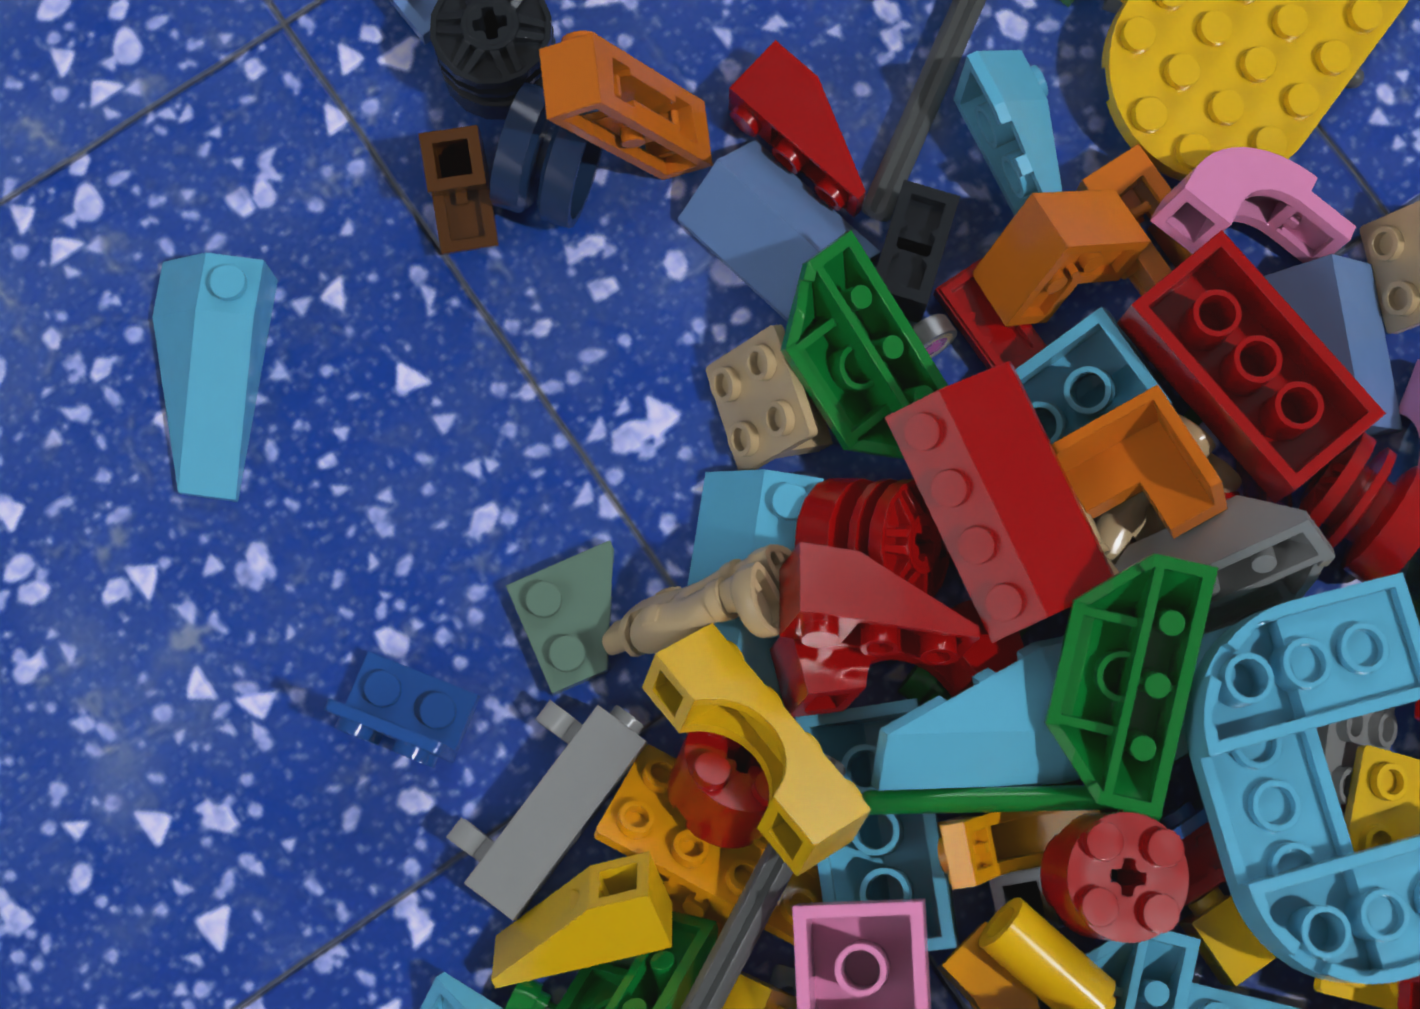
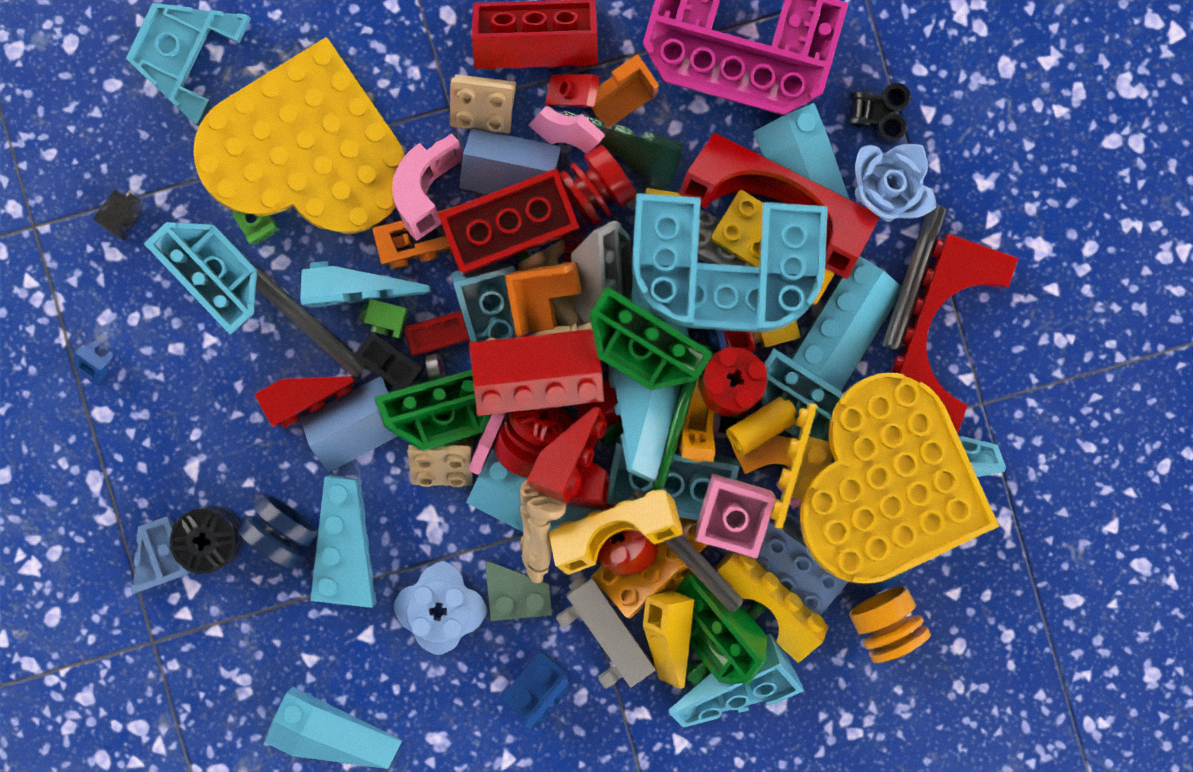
camera: 70 degrees left, 10 degrees up
(459, 188) = (275, 581): reddish brown brick -> none
(505, 530) = (443, 585): none -> light blue brick
(557, 278) = (342, 552): none -> medium azure wedge
(632, 102) = (255, 507): orange brick -> none
(833, 462) = (486, 442): none -> bright pink tile
(982, 216) = (384, 317): none -> bright green brick
(1053, 248) = (414, 291): orange panel -> none

